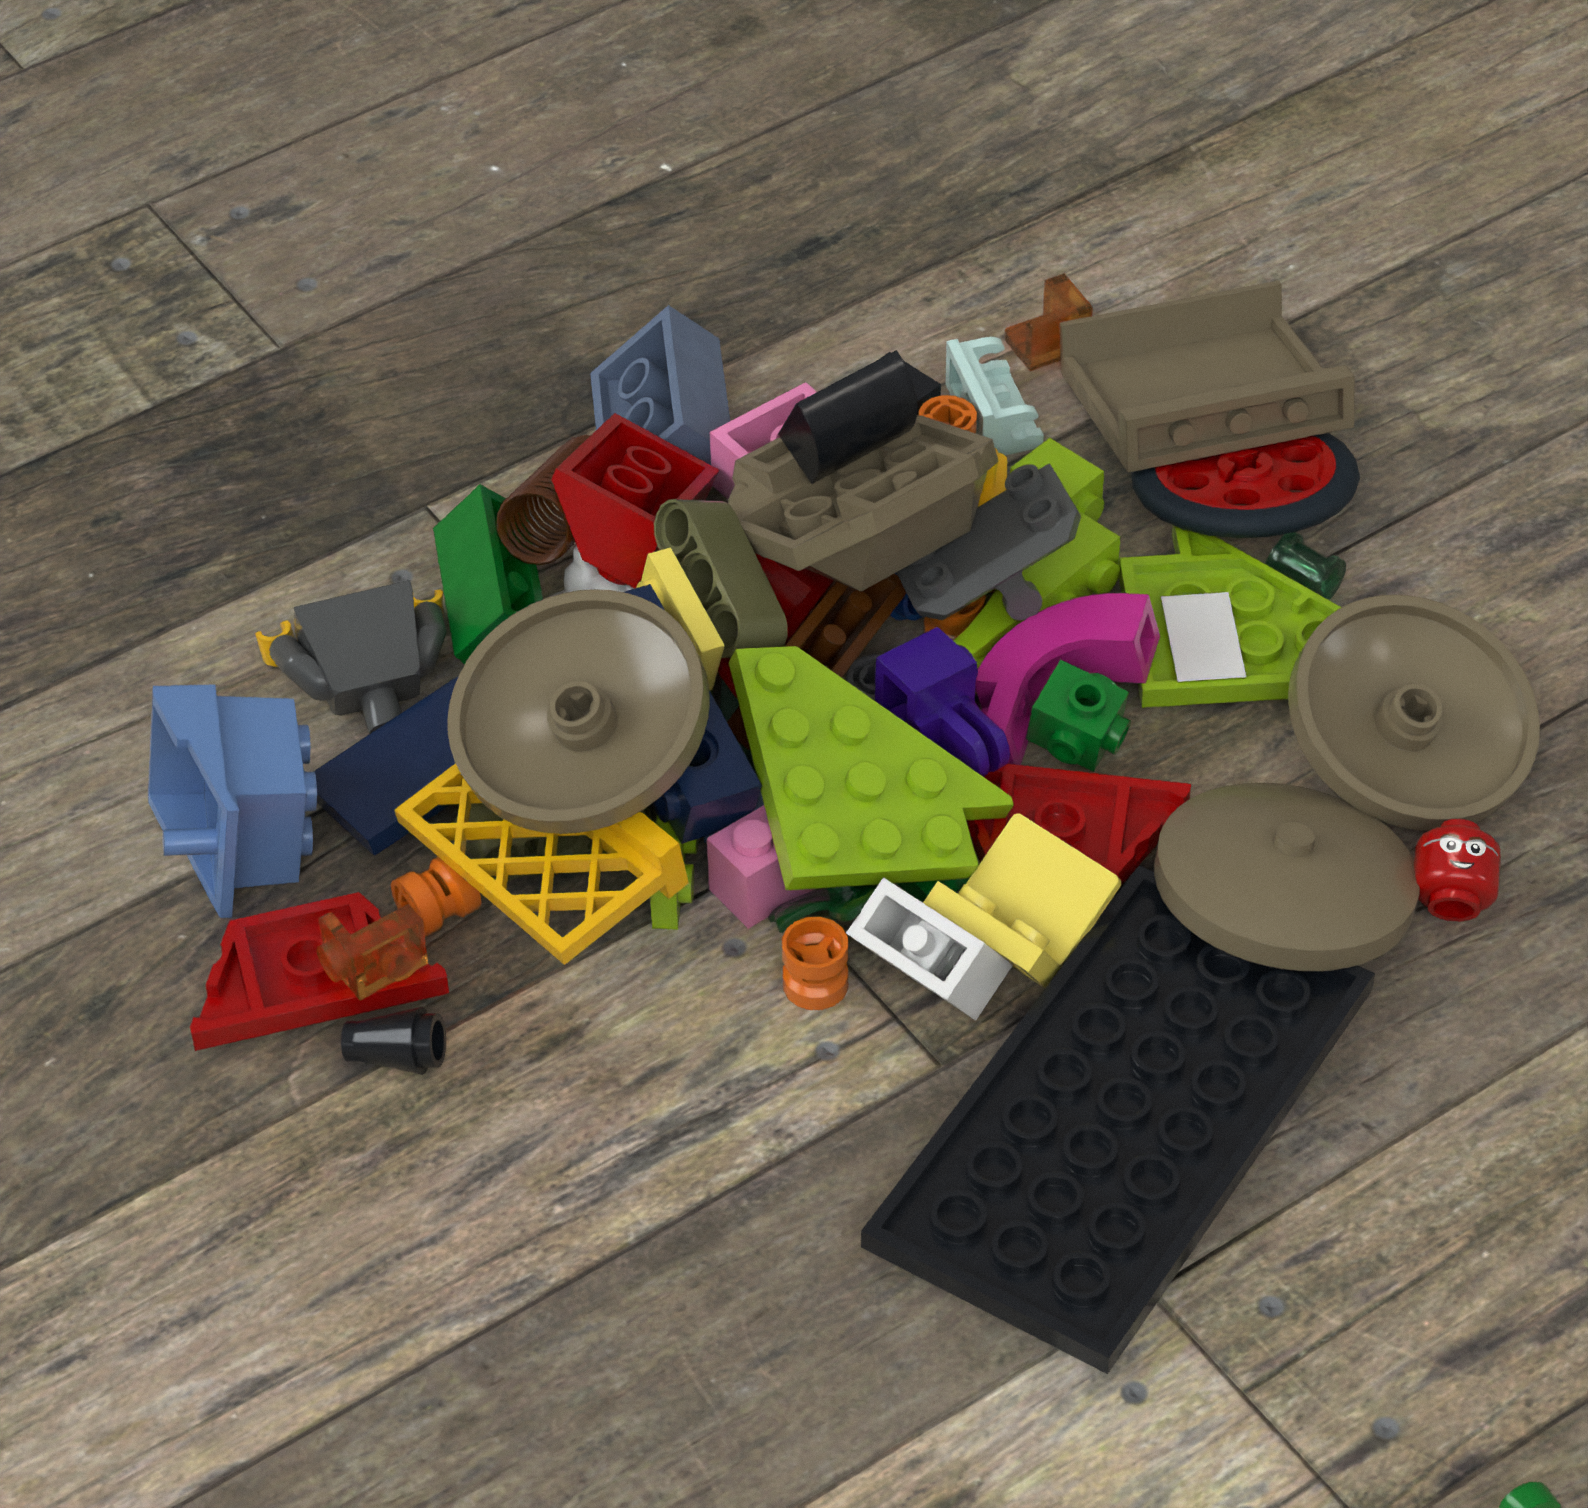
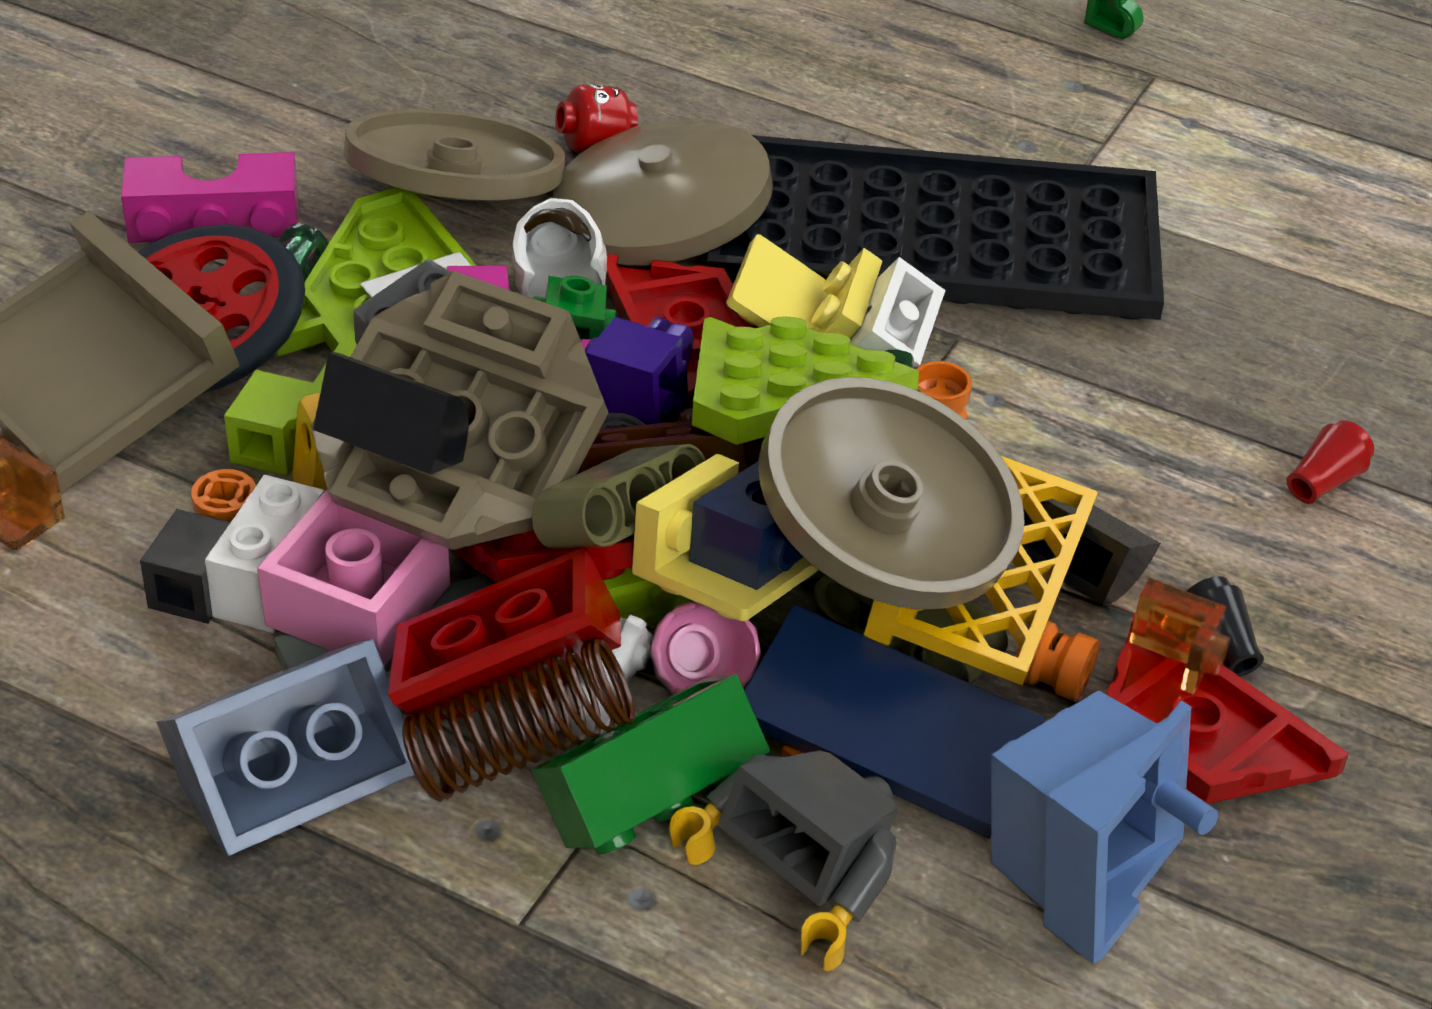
camera: 120 degrees left, 5 degrees down
(545, 1259) = (1333, 459): none -> red cone
(546, 996) = (1107, 555): none -> black brick
(993, 393) = (132, 523): light aqua hinge -> none
(1181, 731) = (558, 242): none -> white piece
(1437, 531) = (165, 201): none -> dark pink arch

